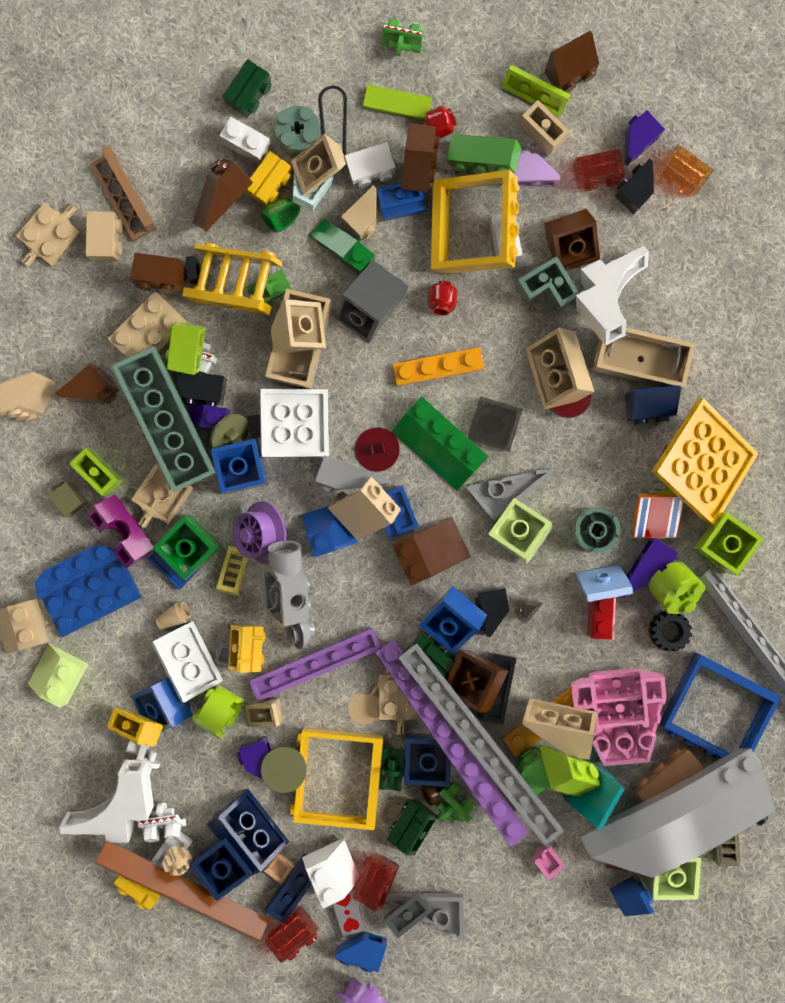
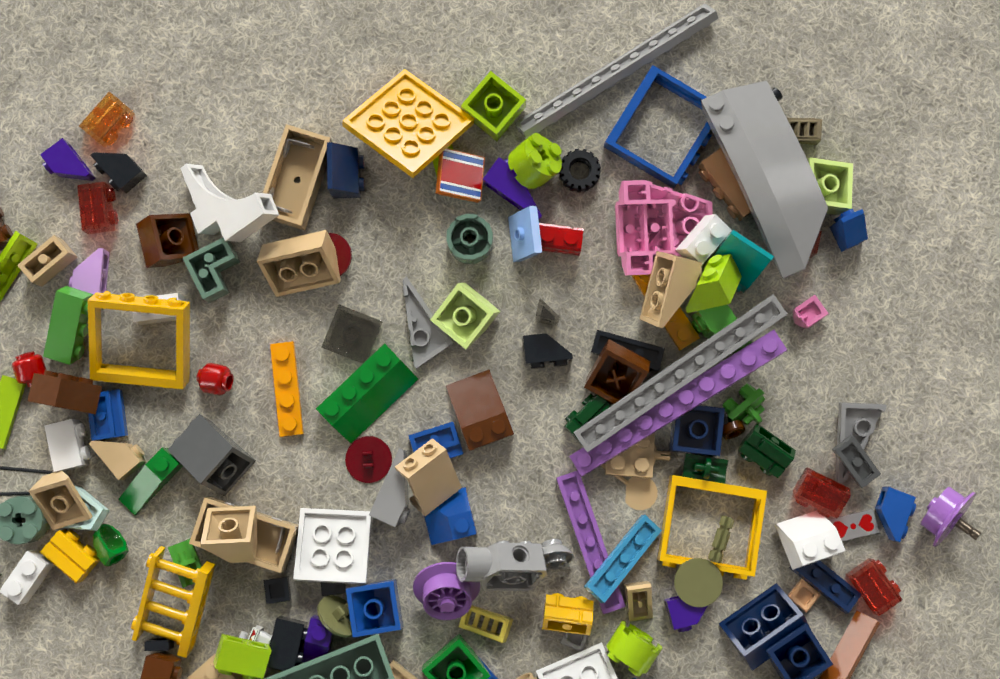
camera: 80 degrees left, 5 degrees down
(221, 189) = (78, 608): reddish brown slope -> none
(250, 374) = (277, 590): none -> black plate
(301, 696) = (622, 558): none -> dark azure plate
(325, 789) = (721, 539): none -> olive axle
(453, 620) = (552, 392): blue brick -> none
(612, 757) = (704, 239): none -> white brick

